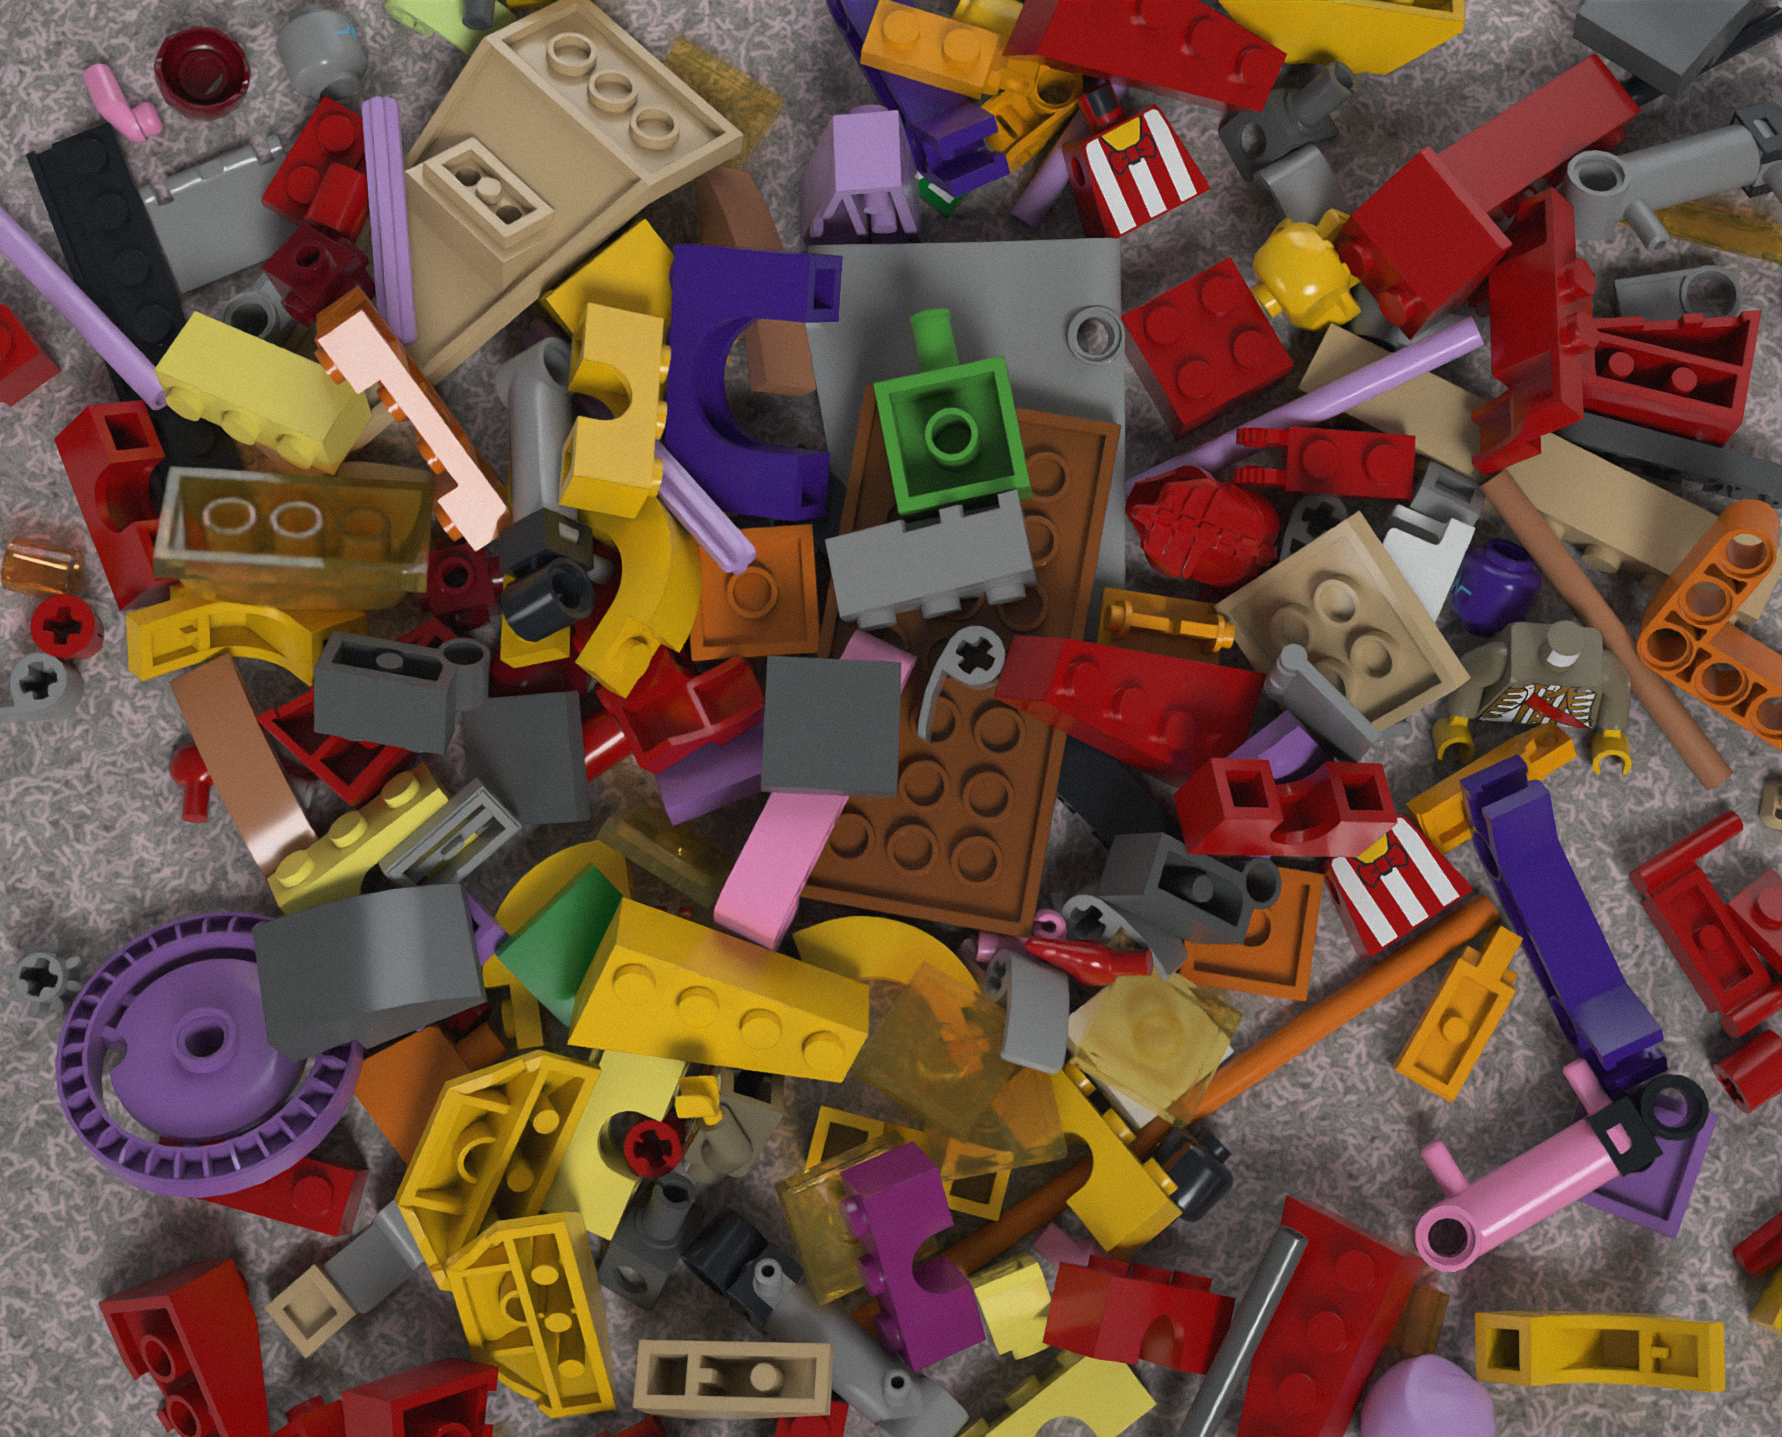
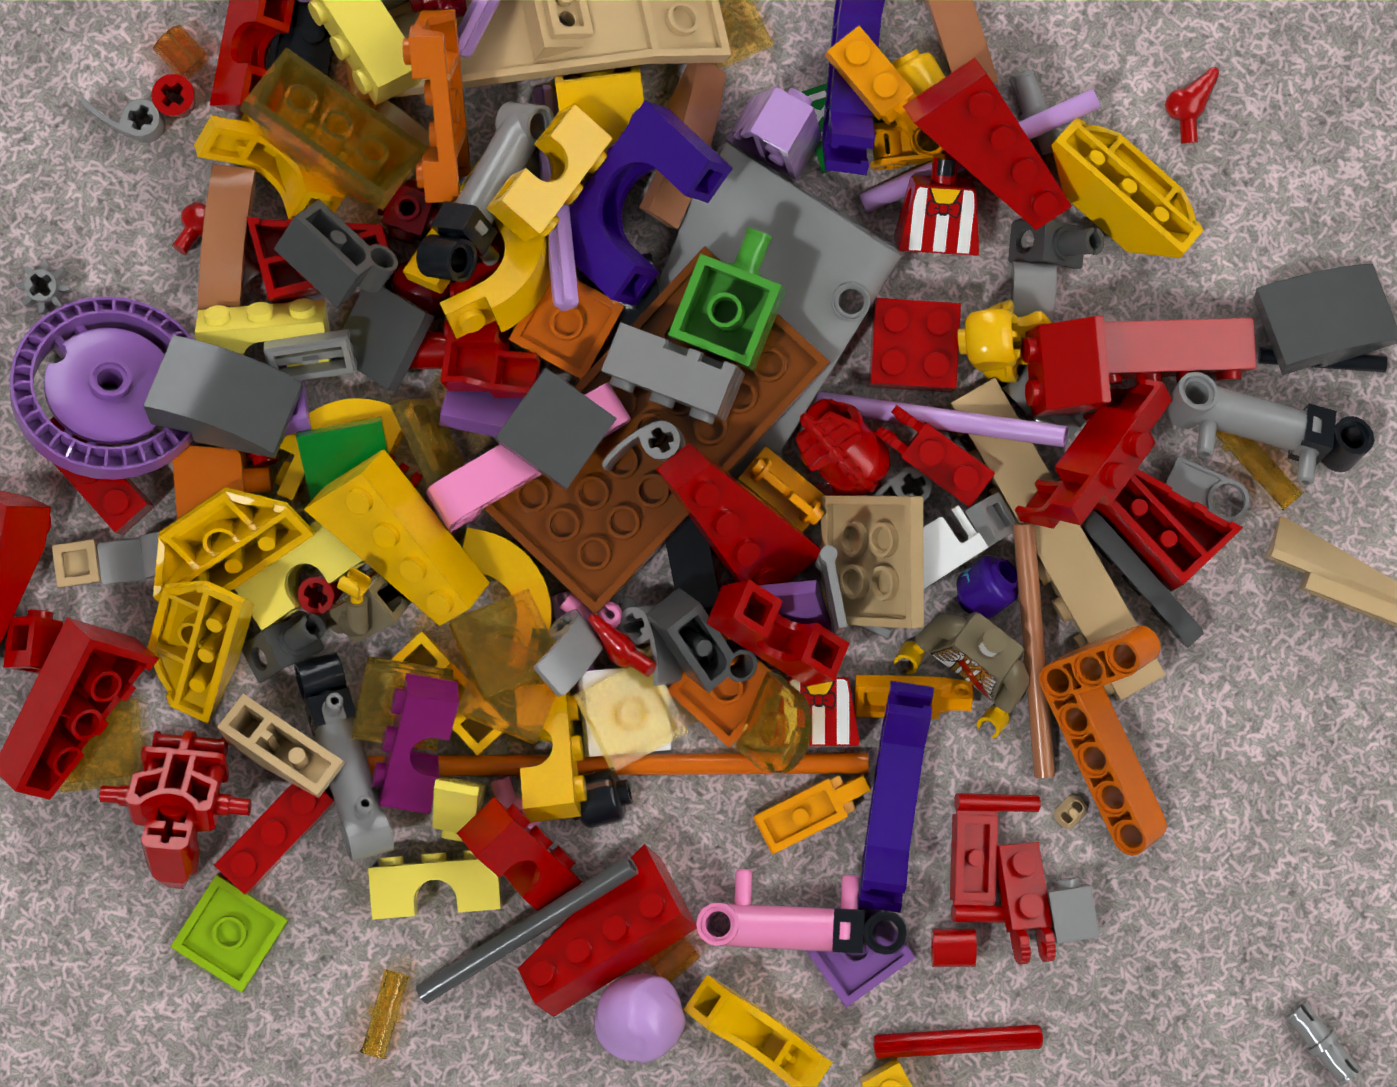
camera: 35 degrees right, 5 degrees up
(1356, 933) = (776, 726): none -> clear yellow tile

